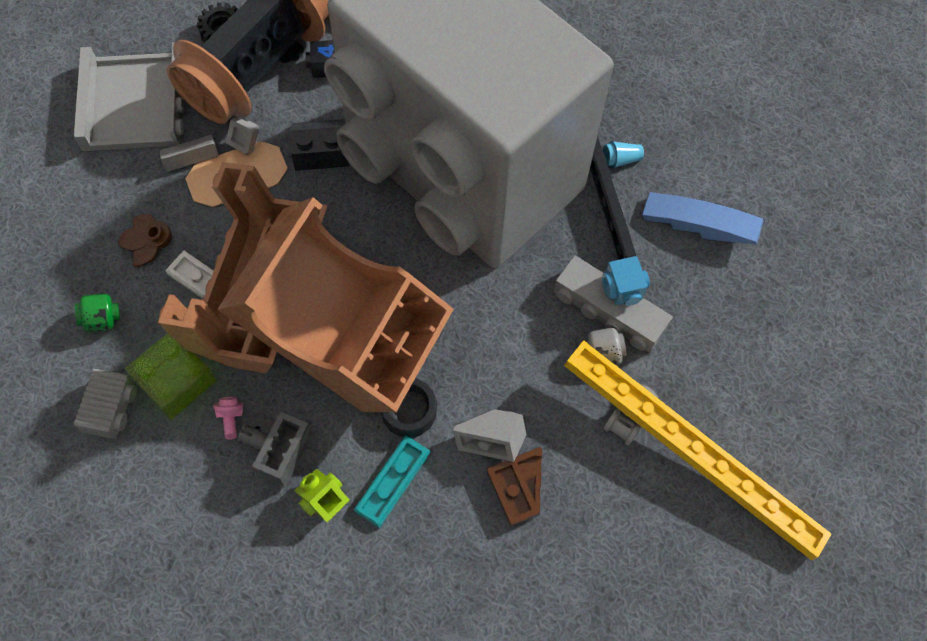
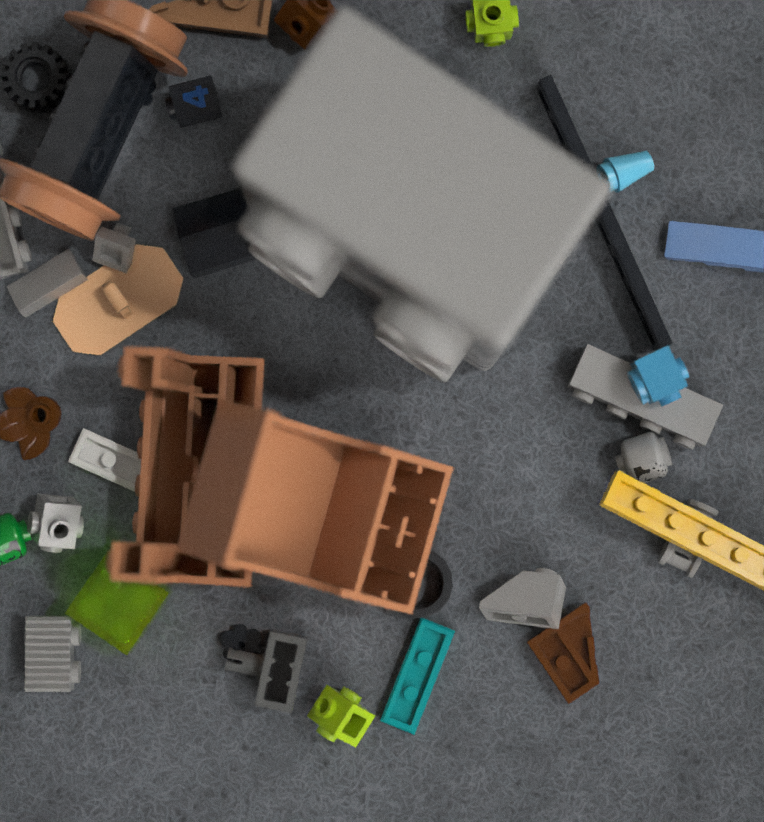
camera: 10 degrees left, 20 degrees up
(144, 296) = (55, 522): none -> light grey brick
(228, 408) = (198, 628): bright pink plate -> none

